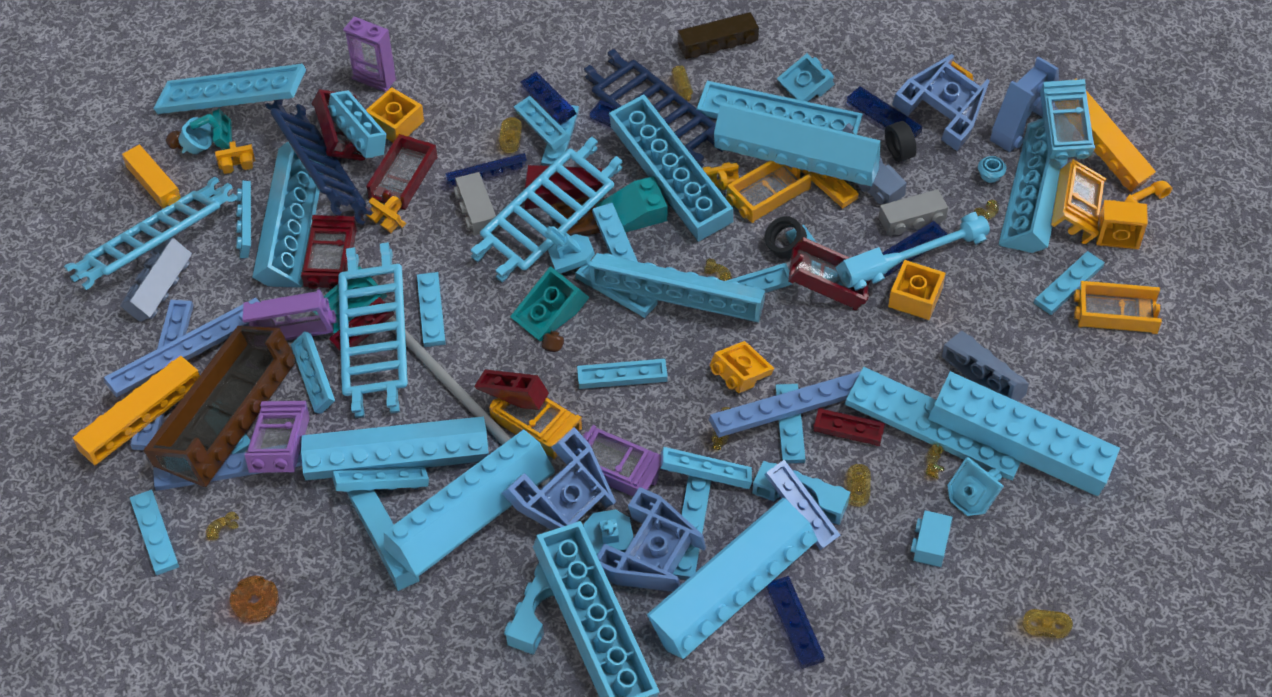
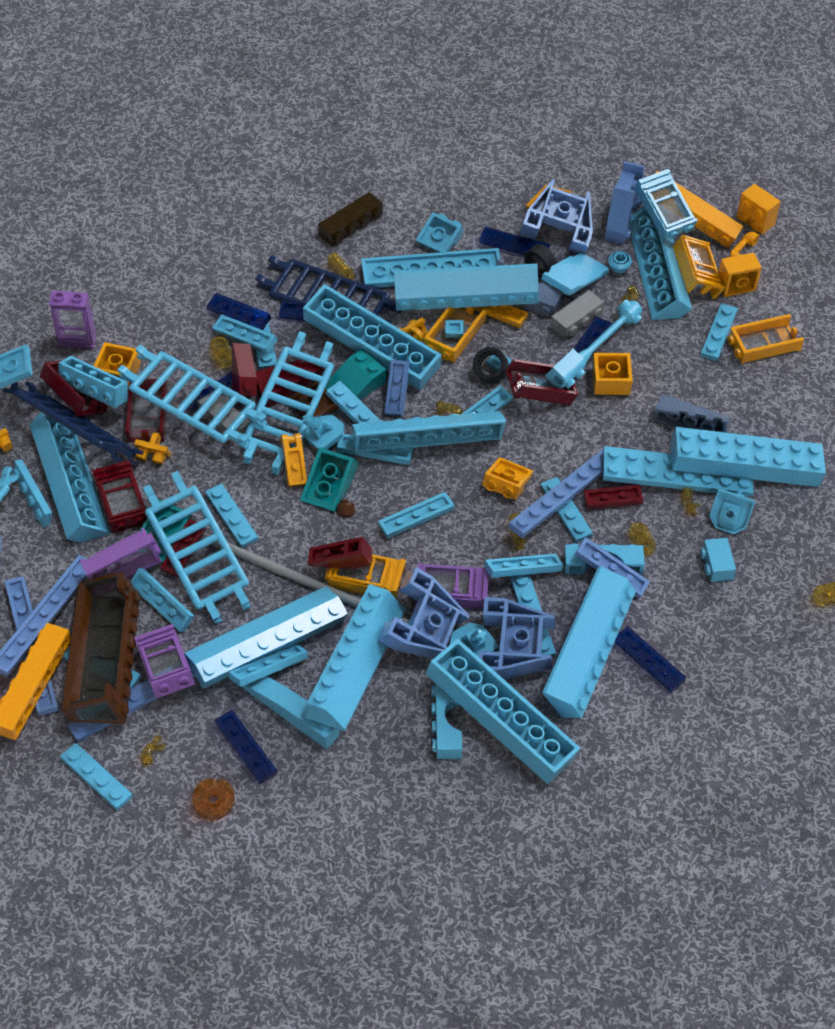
camera: 25 degrees left, 0 degrees up
(315, 557) = (246, 746): none -> clear blue plate
(468, 220) = (231, 433): none -> medium azure bar
(516, 160) = (243, 371): none -> dark red slope
(521, 271) = (294, 460): none -> light orange plate
(669, 229) = (397, 388): none -> medium blue tile
(766, 186) = (454, 329): none -> medium azure plate
(932, 166) = (574, 273): none -> medium azure piece
(1183, 157) = (758, 209): none -> light orange brick

